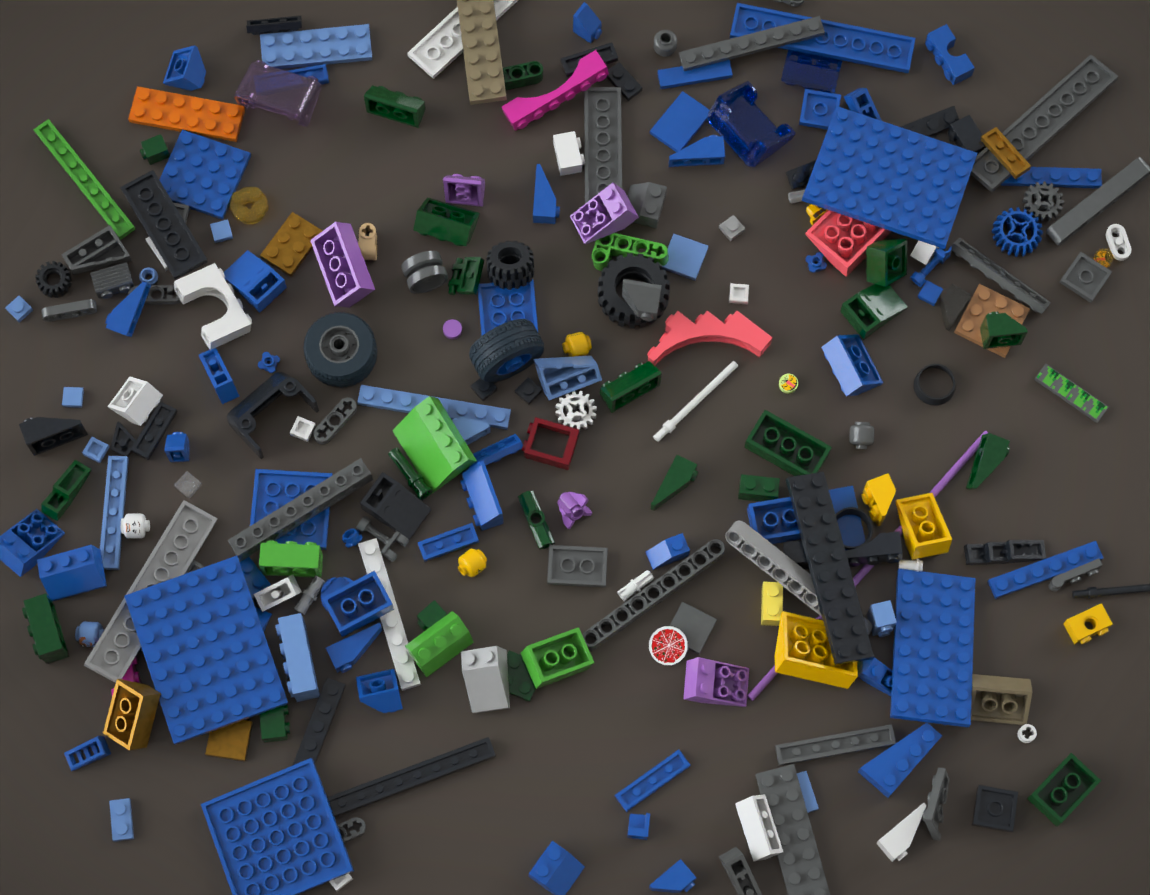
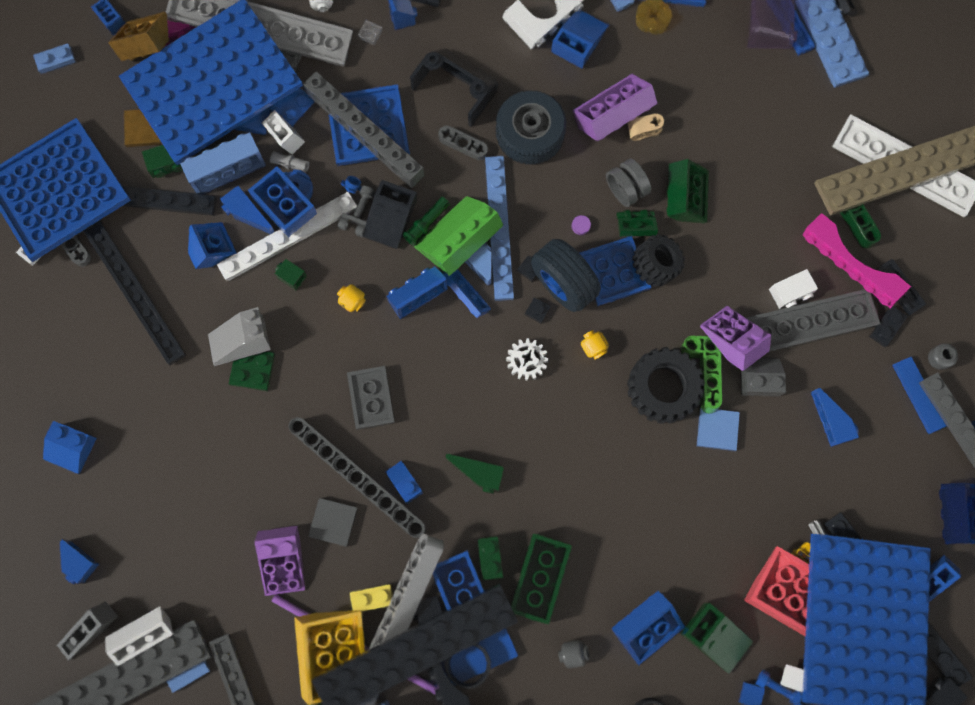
camera: 75 degrees right, 5 degrees up
(219, 375) = (476, 32): blue slope -> none
(268, 367) = (504, 75): blue plate -> none
(290, 244) = (623, 59): pearl gold plate -> none
(291, 559) = (315, 134): bright green brick -> none
(302, 428) = (447, 115): white plate -> none
(394, 105) = (792, 115): dark green slope -> none
(439, 643) = (262, 285): bright green slope -> none
(448, 542) = (367, 272): blue plate -> none
(464, 190) = (724, 198): medium lavender slope -> none
(532, 509) = (397, 354): dark green piece -> none
(544, 200) = (732, 279): blue slope -> none
(557, 657) = (269, 398): bright green brick -> none
(564, 462) = (487, 362): dark red window -> none
(566, 374) = (560, 340): medium blue wedge -> none
(573, 507) = (426, 378): medium lavender brick -> none
(586, 23) = (938, 273): blue slope -> none
(630, 385) = (565, 405): dark green slope -> none
(635, 585) = (363, 458): white axle -> none
(638, 826) = (123, 516): blue panel -> none
(642, 298) = (652, 394): dark grey slope -> none
(652, 780) = (173, 519): blue tile -> none
(668, 645) = (308, 504): tile -> none
(671, 424) = (535, 454): white bar -> none
(680, 122) = (862, 393): blue tile -> none
(708, 328) = (647, 468): coral arch -> none
(732, 228) = (763, 470): light grey plate -> none
(738, 293) = (694, 493): white tile -> none
(746, 126) = (879, 460): clear blue windscreen -> none
(788, 383) = (611, 564): tile -> none
(816, 267) = (744, 564): blue plate -> none
(818, 108) = (922, 530): blue plate -> none
(878, 495) = (508, 689): yellow slope -> none
(886, 261) = (771, 640): dark green slope -> none

